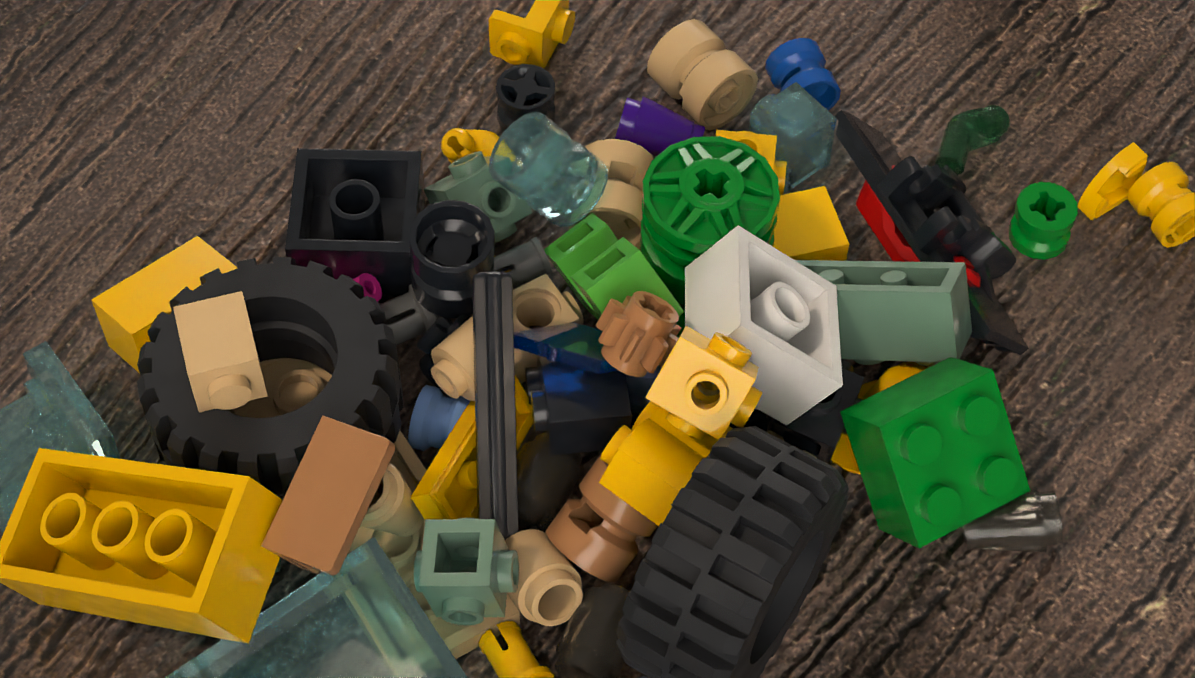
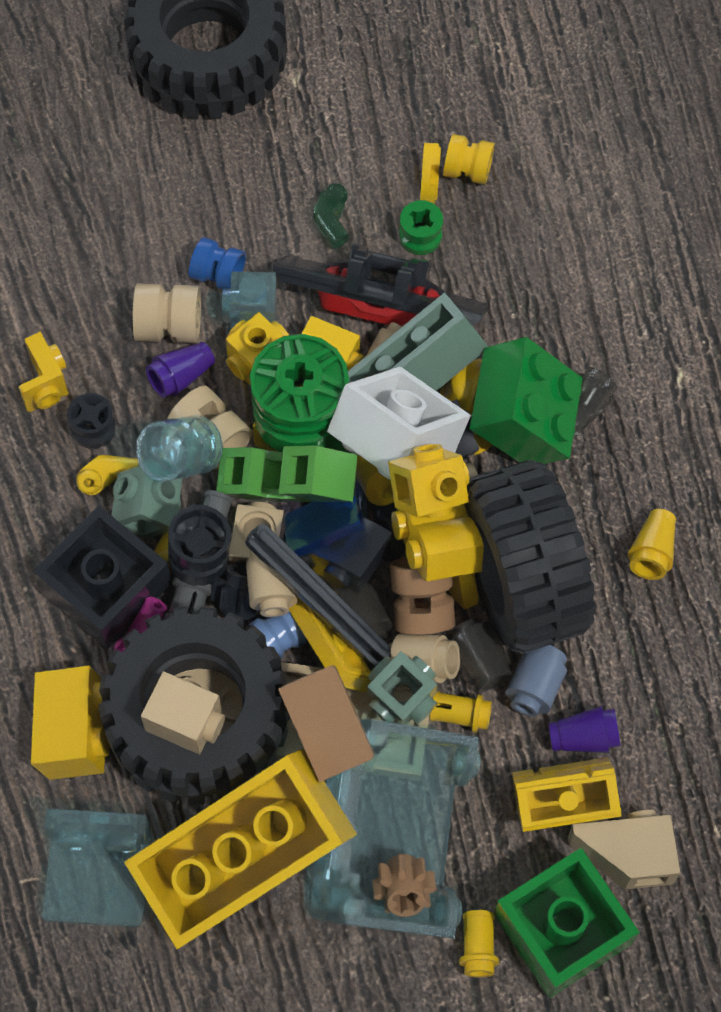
camera: 50 degrees left, 10 degrees up
(638, 333) = (362, 488): medium nougat gear -> none

